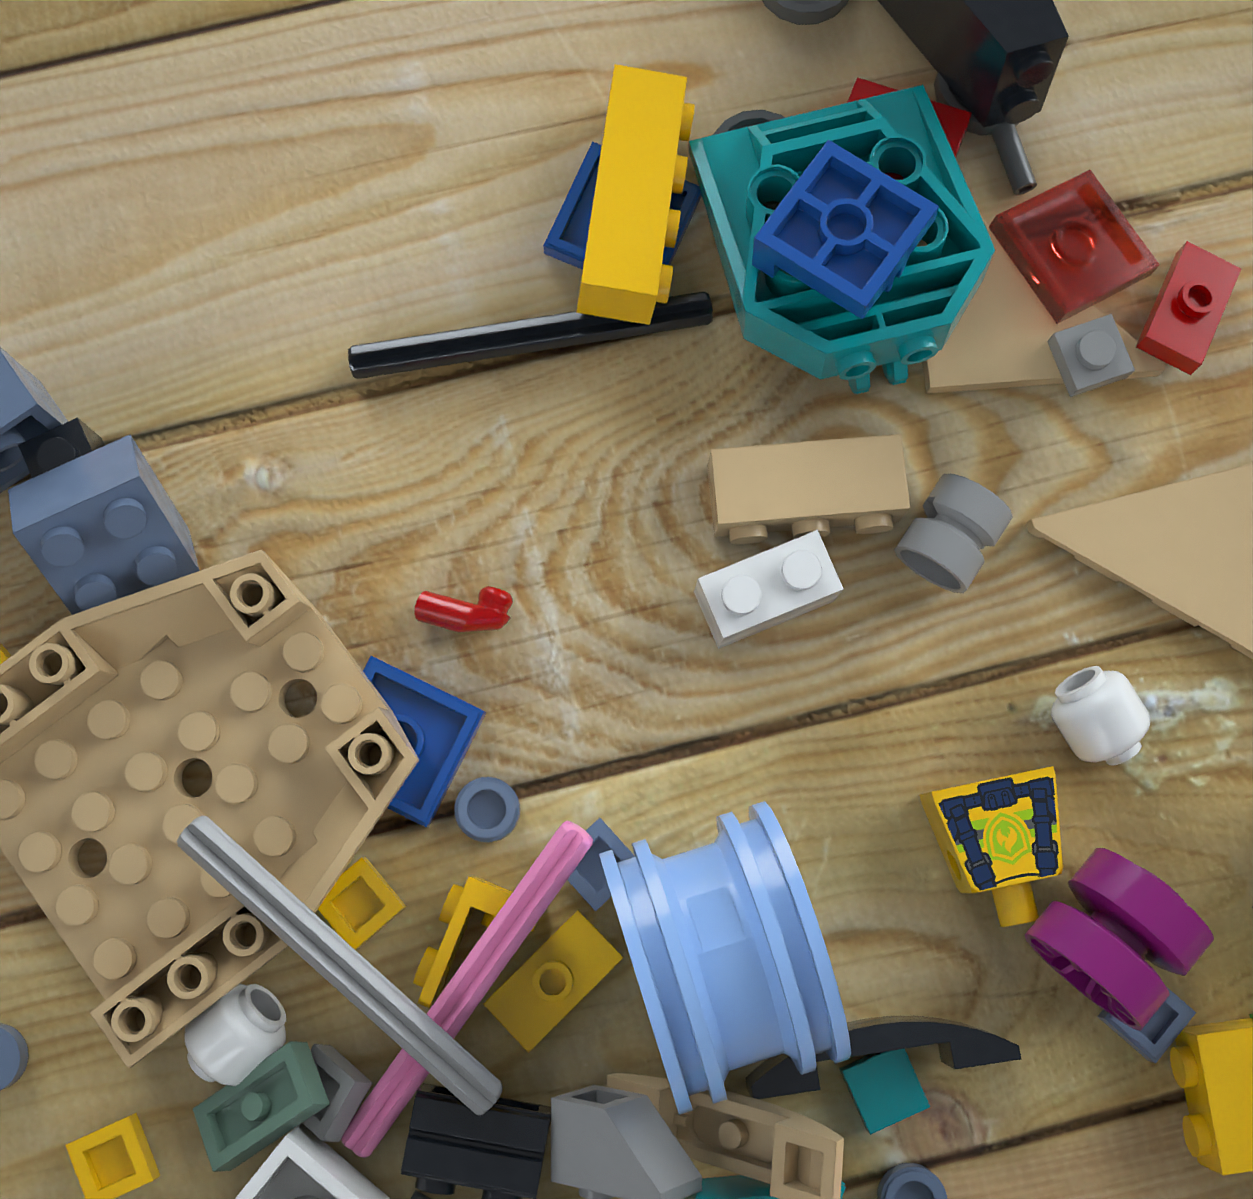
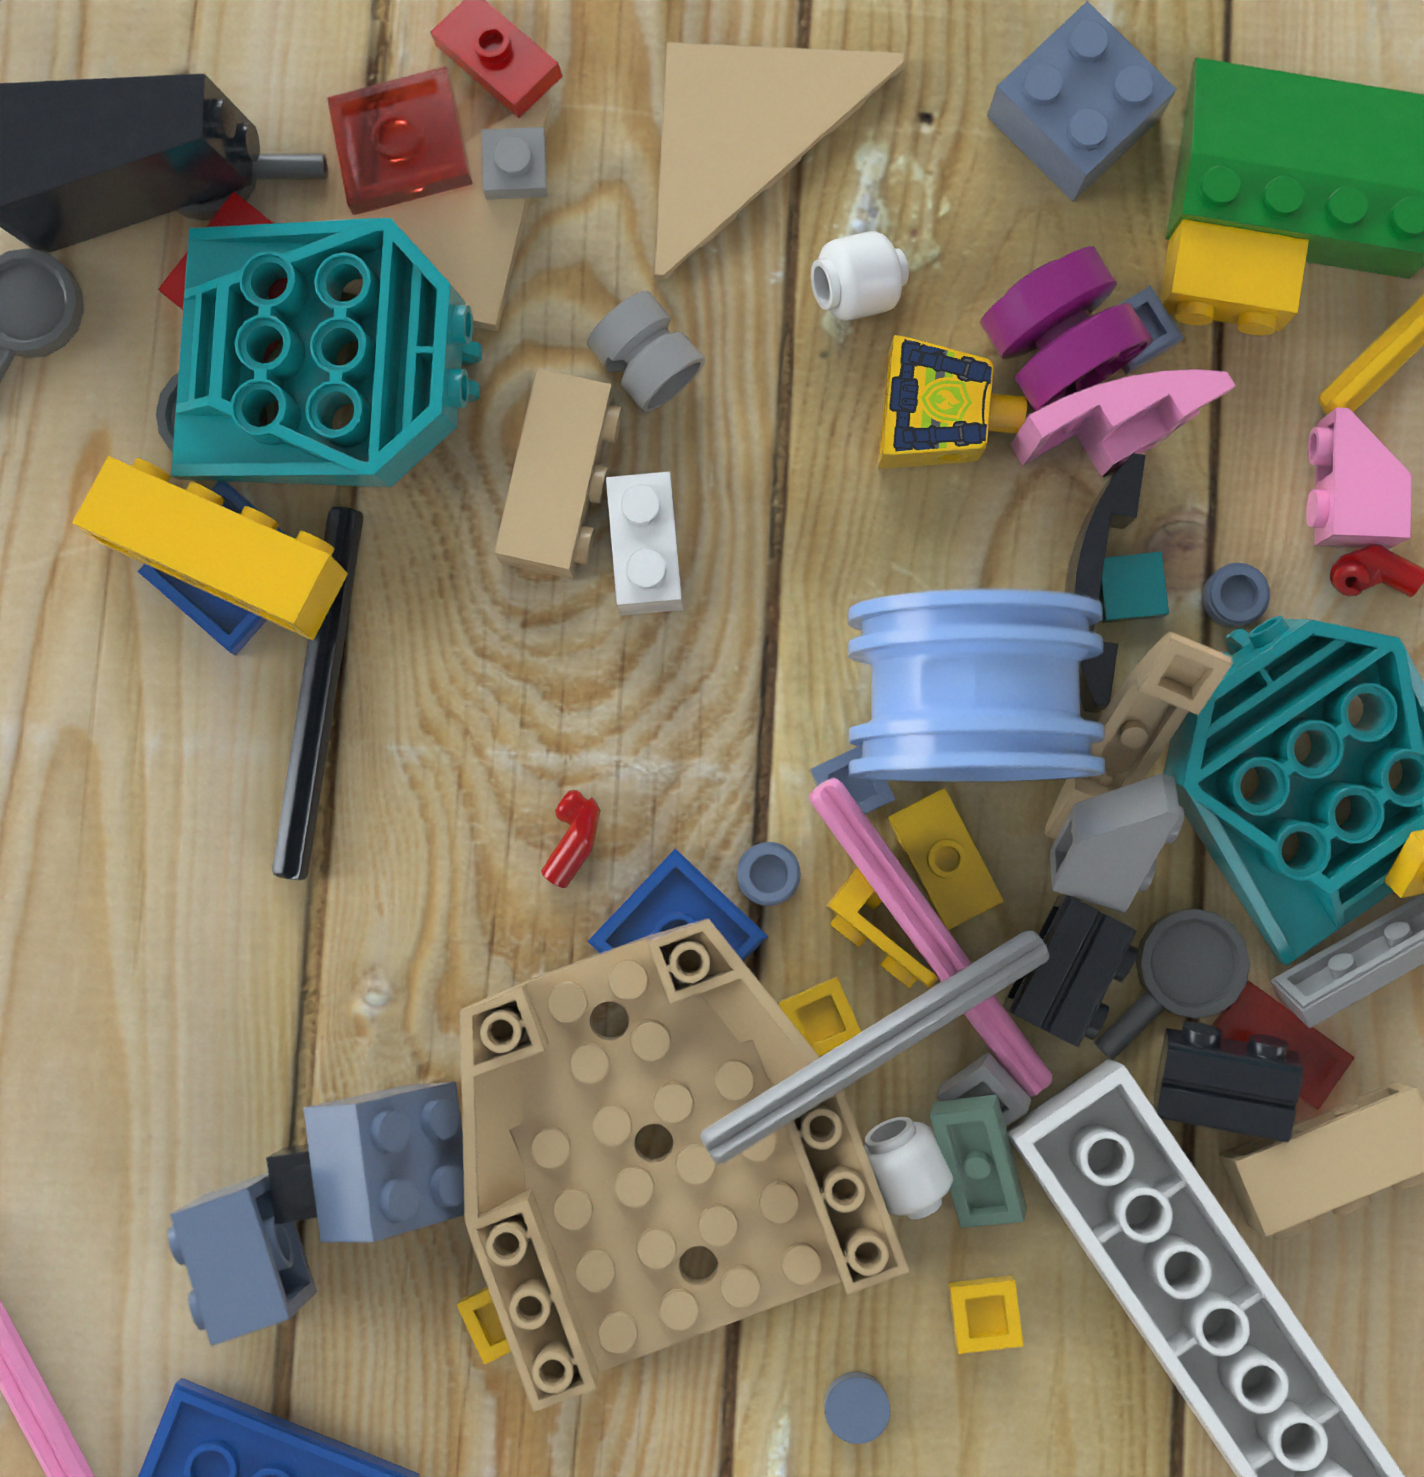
camera: 65 degrees left, 5 degrees up
(844, 230) = (327, 353): blue piece -> none
(1053, 1022) = (1121, 415): none -> bright pink slope

